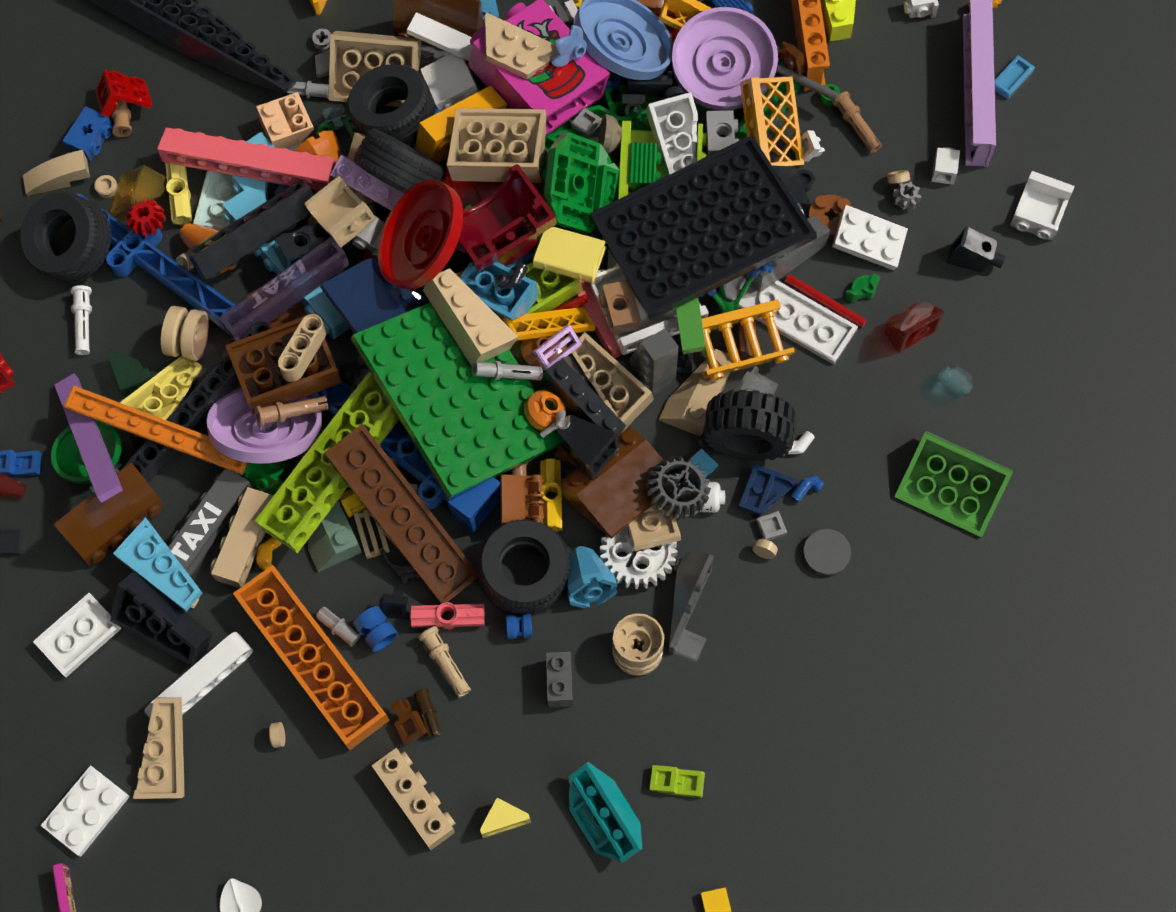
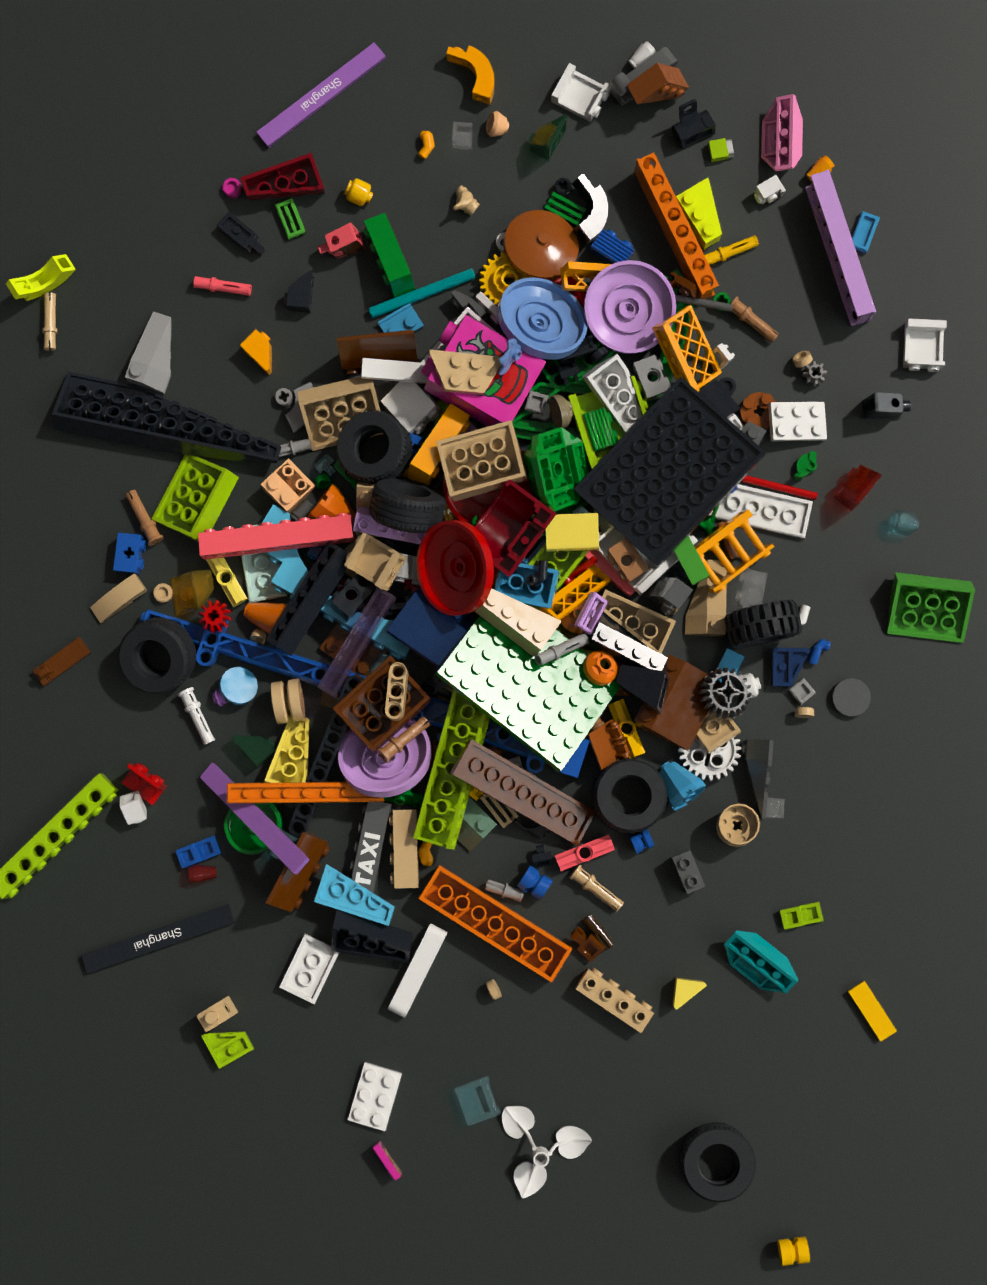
camera: 15 degrees left, 15 degrees up
(115, 87) = (141, 506): red bracket -> none
(116, 309) = (218, 698): none -> medium lavender plate
(139, 302) = (238, 686): none -> tile
(163, 752) = (417, 1038): tan wing -> none
(186, 100) = (195, 497): none -> lime slope
(193, 860) = (471, 1102): none -> clear light blue plate
(561, 423) = (619, 675): light grey hand -> none
(859, 48) = (731, 250): none -> yellow pin
(945, 165) = (836, 334): white brick -> none

